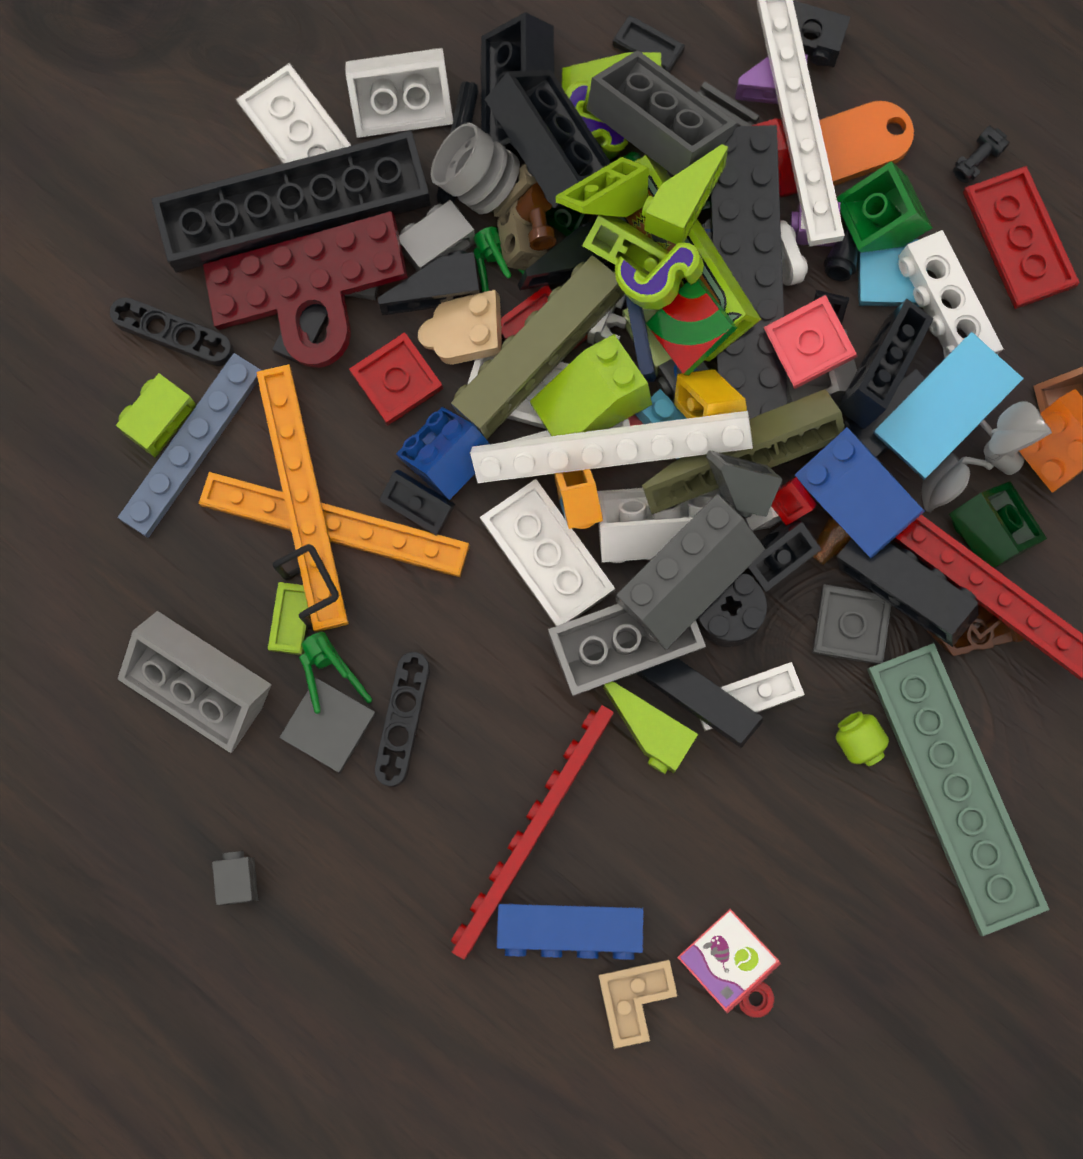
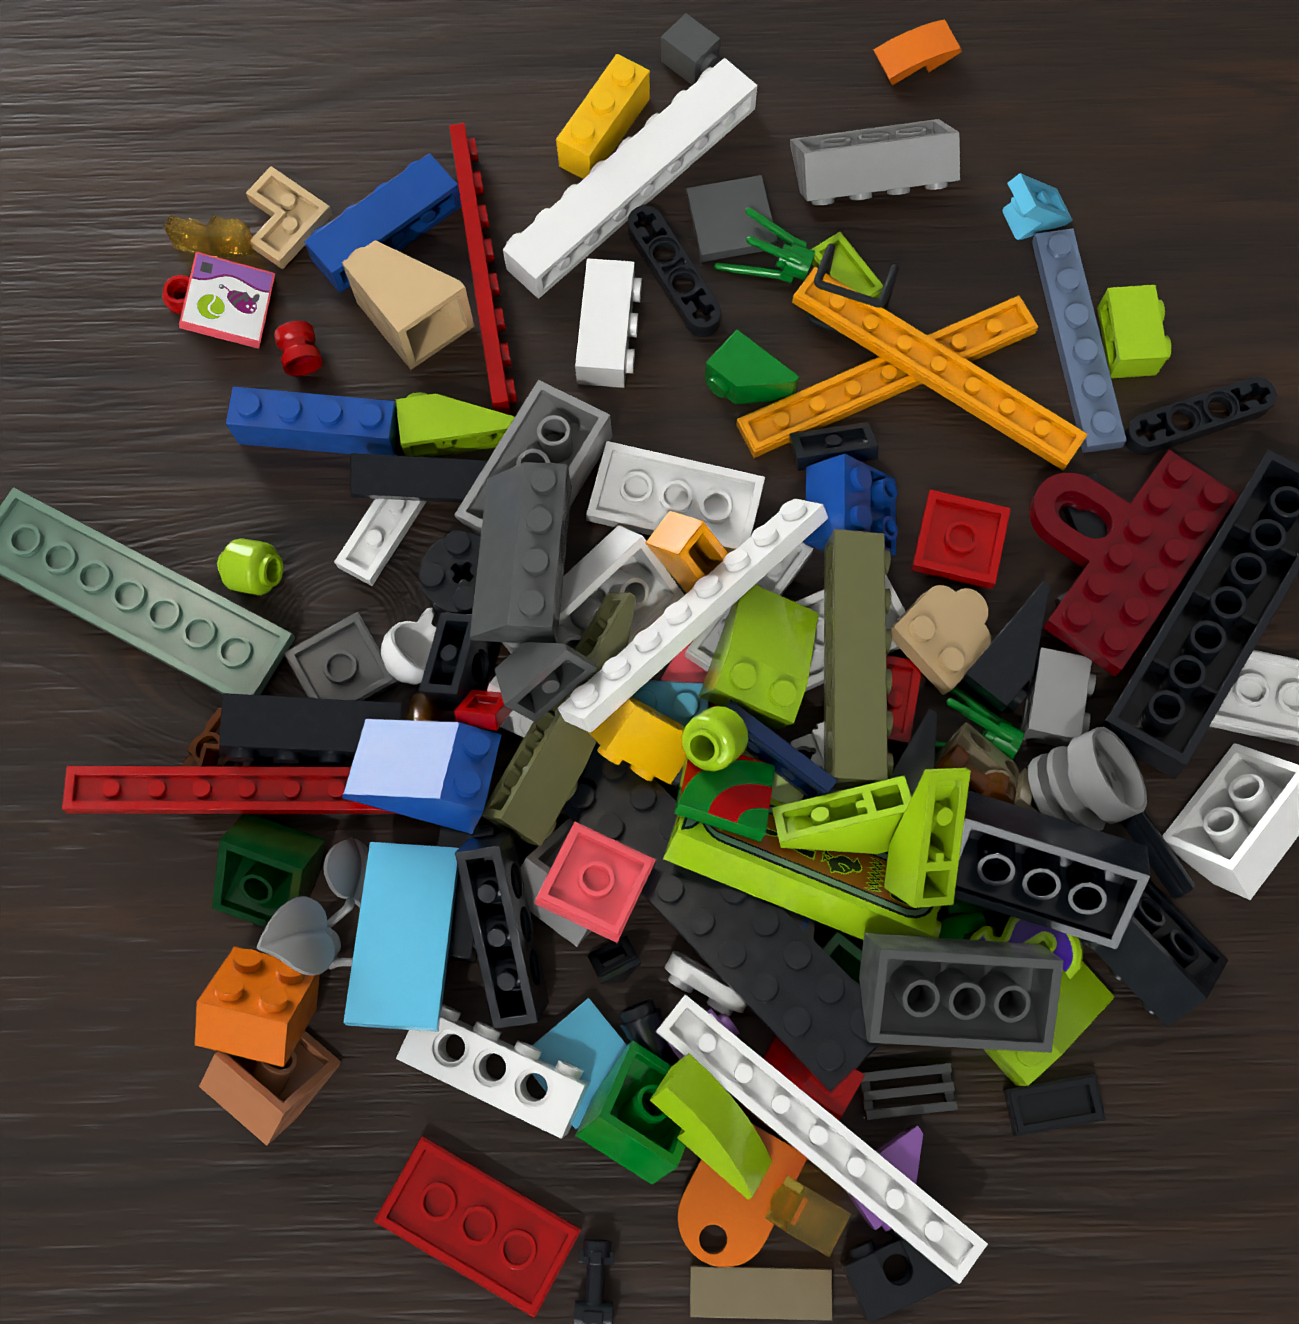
camera: 135 degrees right, 5 degrees down
(80, 740) = (920, 47): none -> orange slope
(126, 551) = (1034, 208): none -> medium azure slope
(346, 875) = (604, 116): none -> yellow brick
(367, 813) = (629, 177): none -> white brick
(425, 599) = (748, 373): none -> green slope
(483, 713) = (607, 323): none -> white brick
(611, 839) = (408, 301): none -> tan slope
(664, 280) = (786, 793): lime animal -> none
(674, 353) = (714, 738): none -> lime head
(683, 196) = (848, 900): lime slope -> none
(690, 1016) = (217, 239): none -> clear yellow slope
(708, 878) = (298, 348): none -> red wheel
(741, 808) = (313, 422): none -> blue brick
(799, 592) = (408, 648): none -> white piece
(836, 93) = (807, 1216): none -> clear yellow brick
(853, 169) = (713, 1125): none -> lime slope
(891, 83) = (761, 1292): none -> dark tan tile

